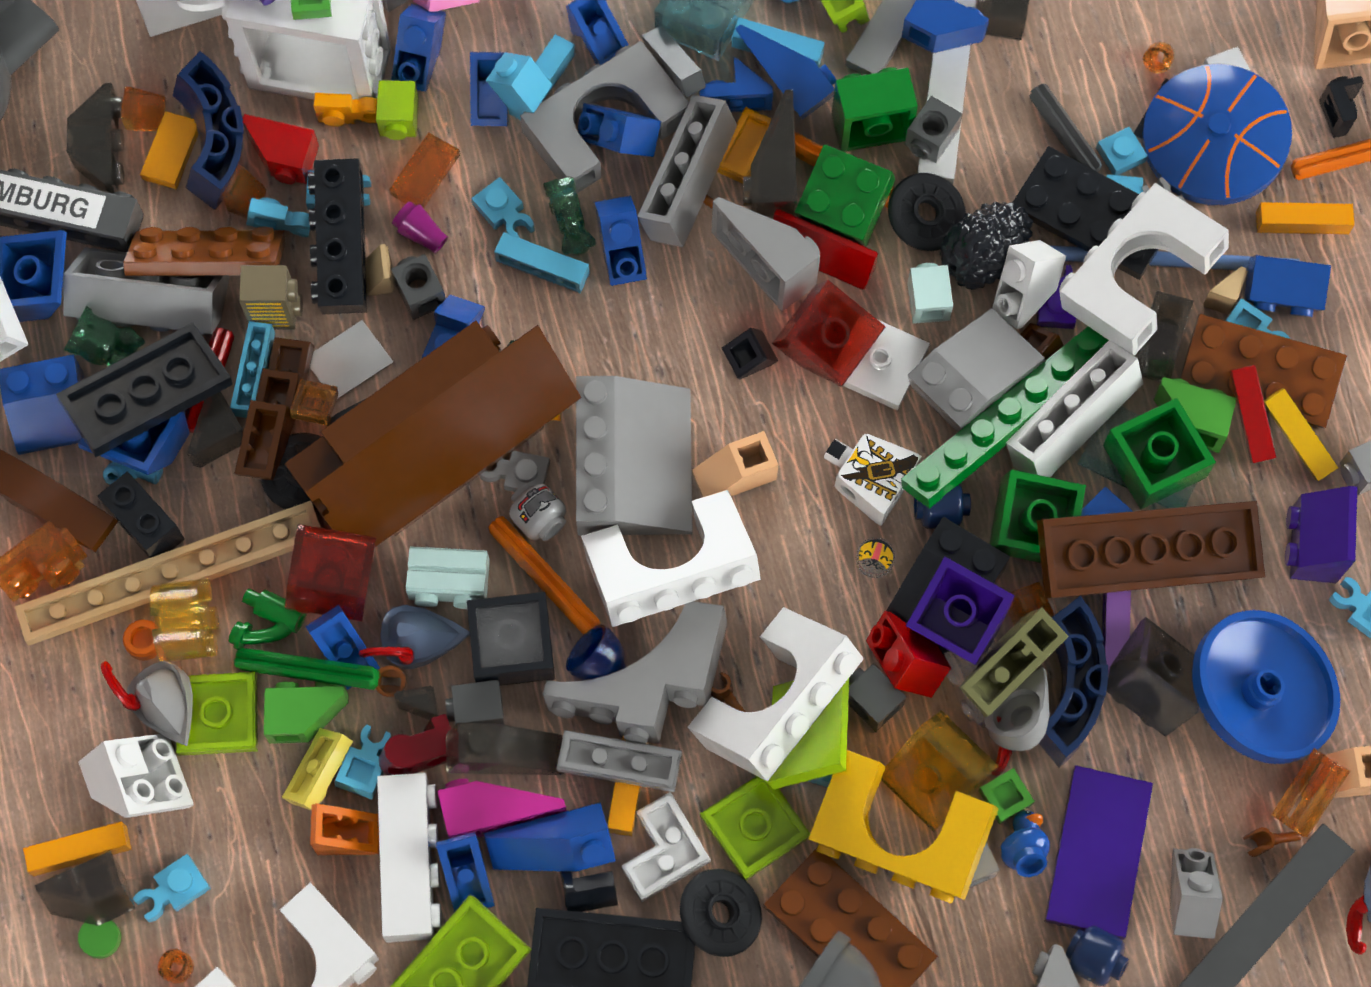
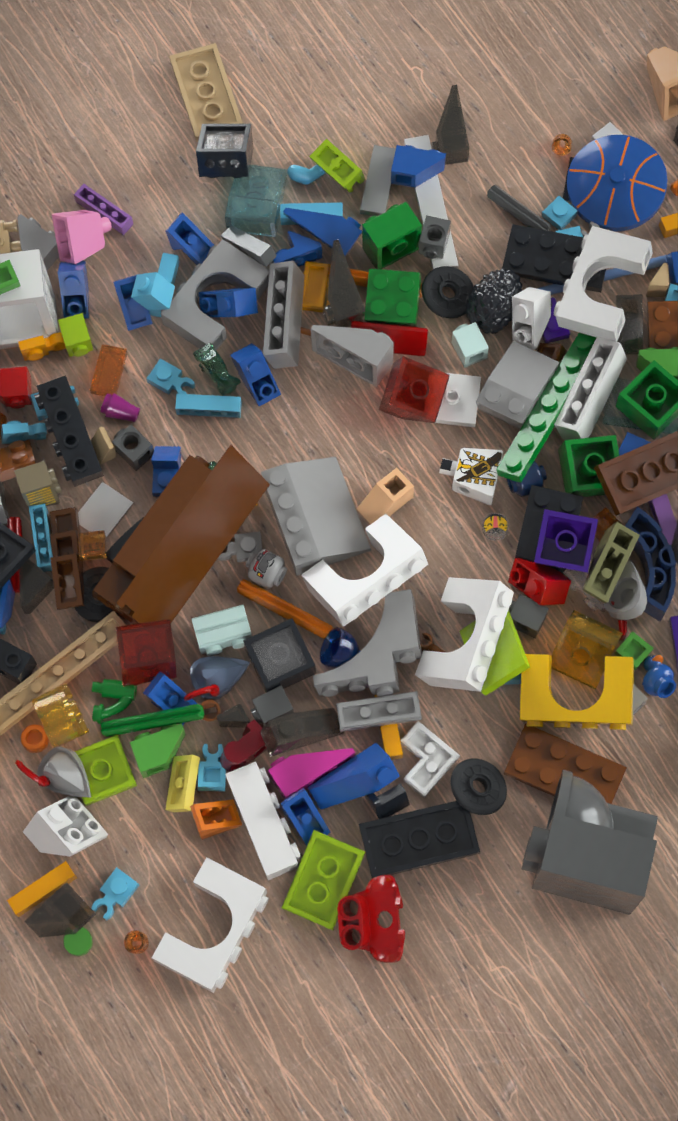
camera: 15 degrees left, 0 degrees up
(749, 353) = (365, 421): black slope -> none
(755, 826) = (480, 724): lime tile -> none

